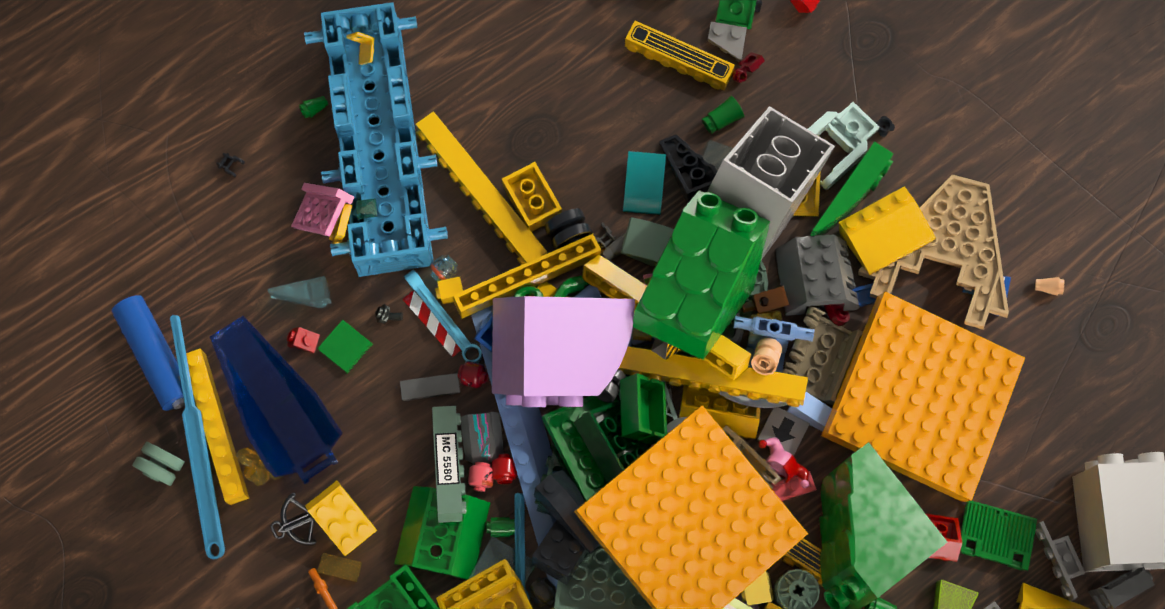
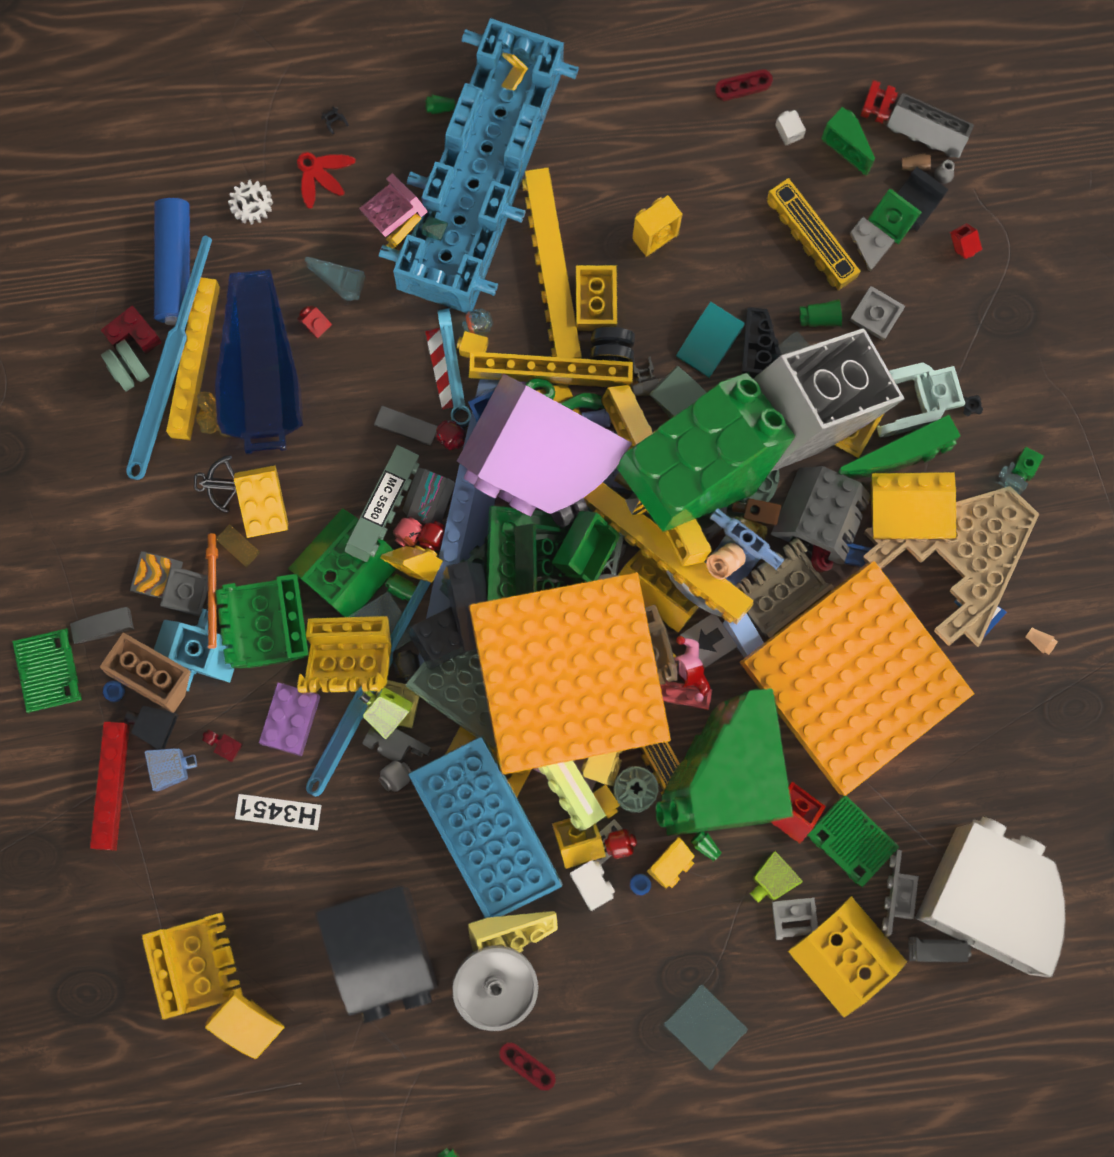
camera: 25 degrees right, 5 degrees up
(145, 428) = (131, 327): none -> dark red brick
(202, 272) = (255, 209): none -> white gear
(237, 213) = (316, 171): none -> red plant
(345, 346) = (349, 347): green tile -> none
(383, 314) = (399, 335): pearl dark grey plate -> none
(502, 499) = (414, 562): none -> yellow slope
(550, 111) = (656, 225): none -> yellow brick
(748, 64) = (877, 278): dark red plate -> none
(766, 91) = (877, 313): none -> light grey plate
(953, 168) = (1015, 481): none -> clear light blue bracket
(955, 150) = (1027, 463): none -> green brick

